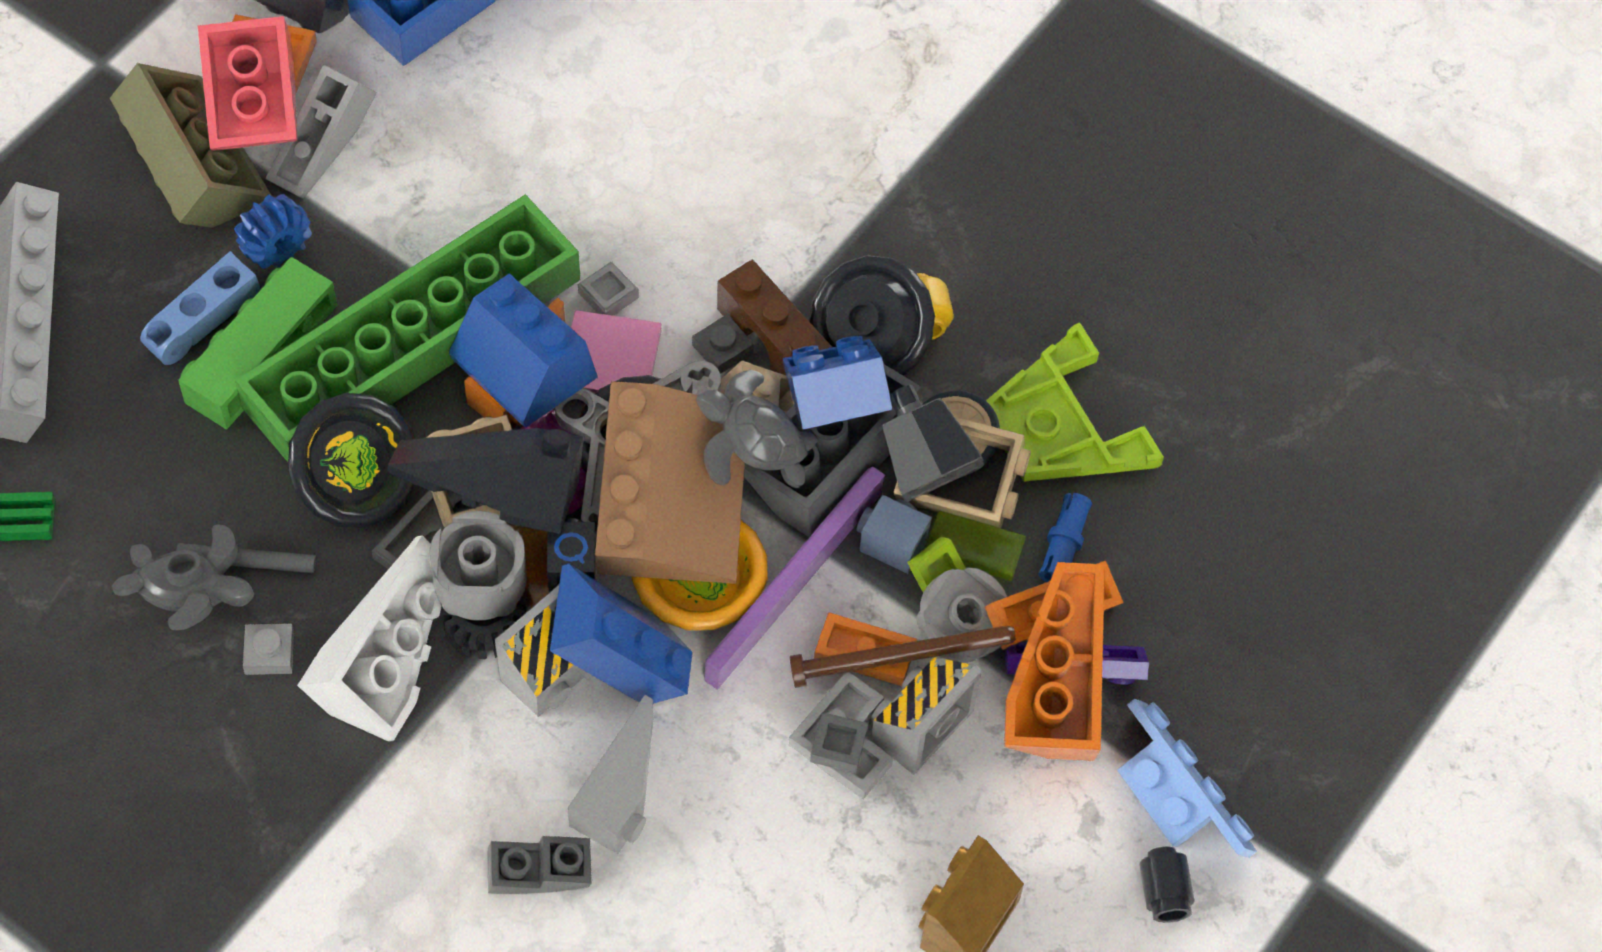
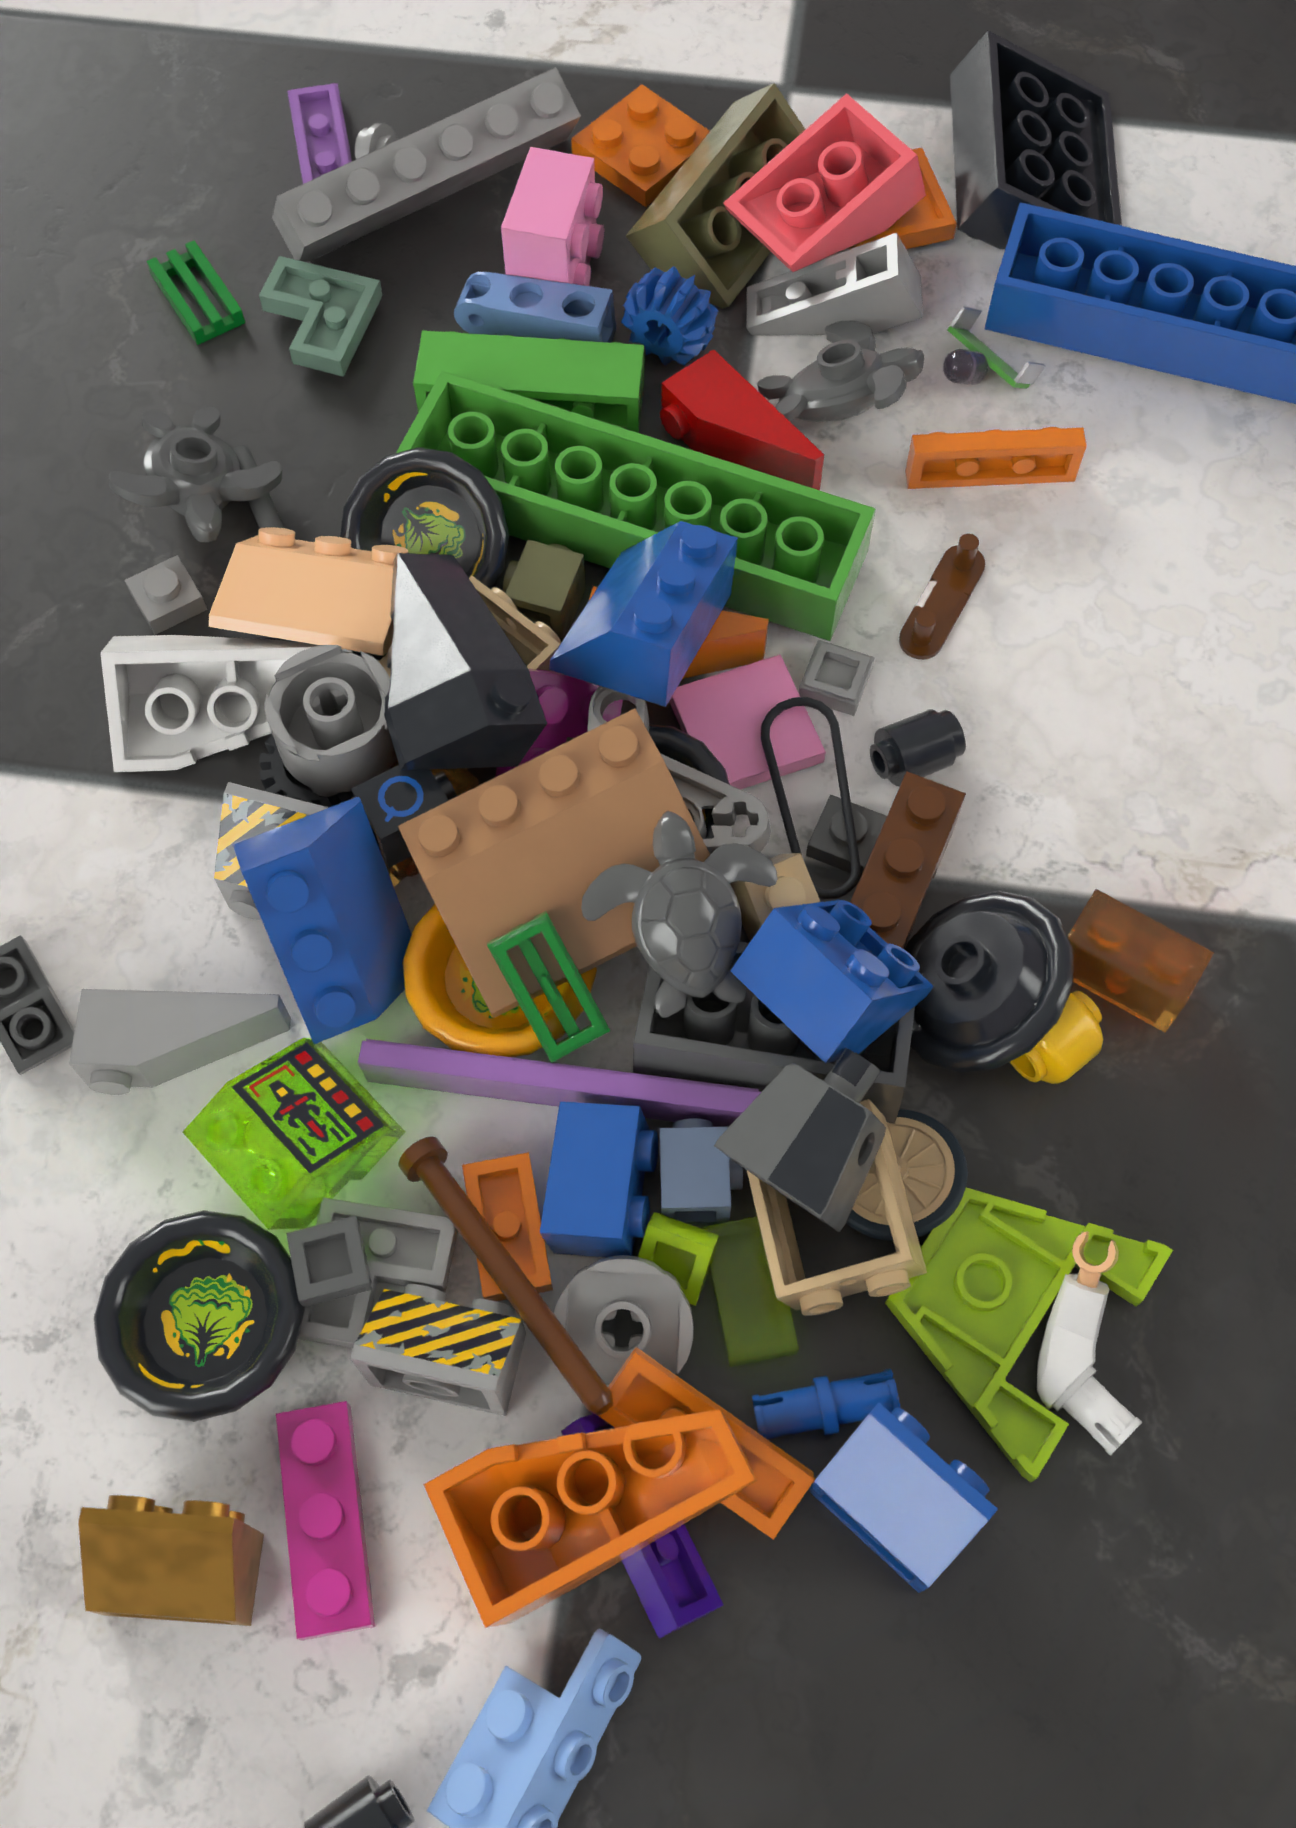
camera: 65 degrees right, 5 degrees up
(90, 173) = (640, 143): none -> orange plate
(91, 430) = (332, 308): none -> sand green plate
(148, 256) = (553, 219): none -> bright pink brick
(361, 538) = (308, 591): none -> light nougat slope
(380, 242) = (730, 420): none -> red slope
(394, 162) = (844, 377): none -> dark grey animal
(430, 88) = (972, 365): none -> piece
(433, 408) = (547, 584): none -> olive brick
(513, 116) = (995, 457): none -> orange plate
(590, 204) = (943, 599): none -> reddish brown piece
(687, 319) = (843, 787): none -> black piece
(691, 272) = (917, 745): none -> black brick
(739, 731) = (293, 1133): none -> clear neon green piece
(741, 553) = (521, 936): none -> green tile
(825, 834) = (198, 1316): none -> black piece
(870, 581) = (598, 1180): none -> blue brick
(911, 236) = (1135, 960): none -> clear orange brick
(958, 822) = (324, 1521): none -> dark pink plate
(1105, 404) = (1069, 1352): none -> white arm
(1140, 520) = (904, 1496): none -> slope

